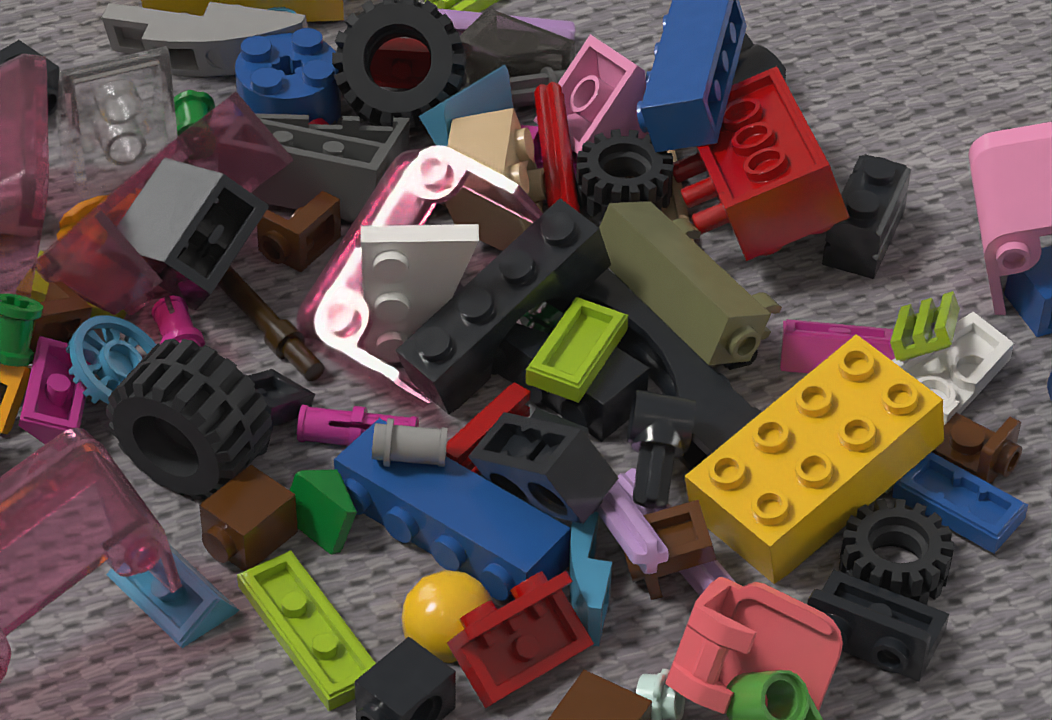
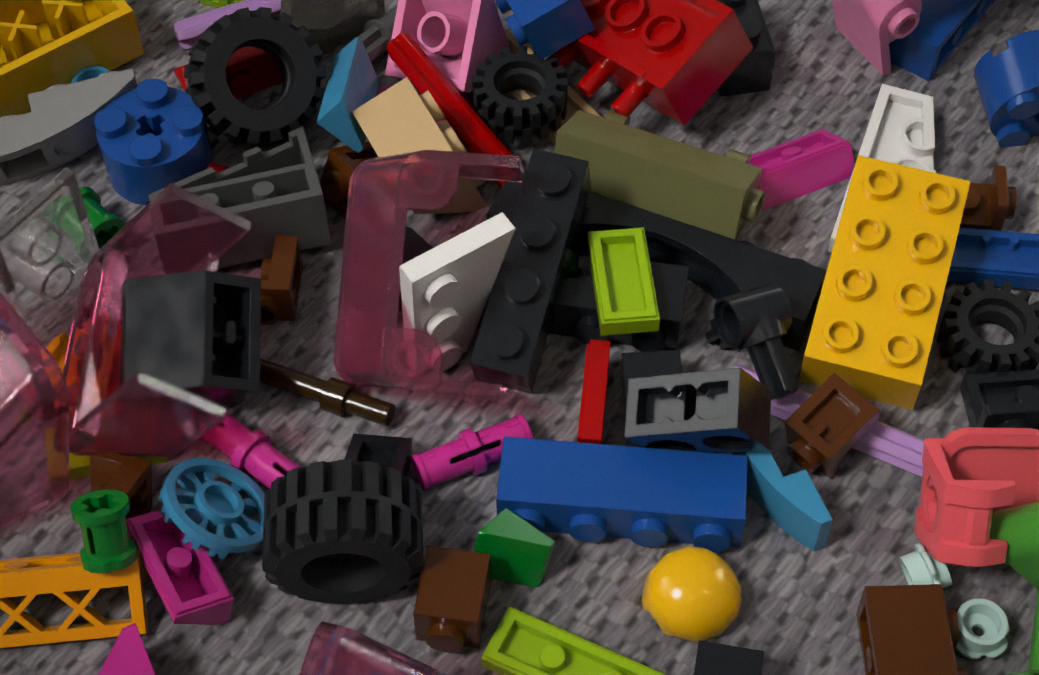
camera: 30 degrees left, 10 degrees up
(409, 444) = (561, 451): light grey pin -> none
(520, 640) = (777, 584): red bracket -> none
(632, 530) = (824, 437): lavender axle -> none
(917, 328) = (849, 101): lime tile -> none

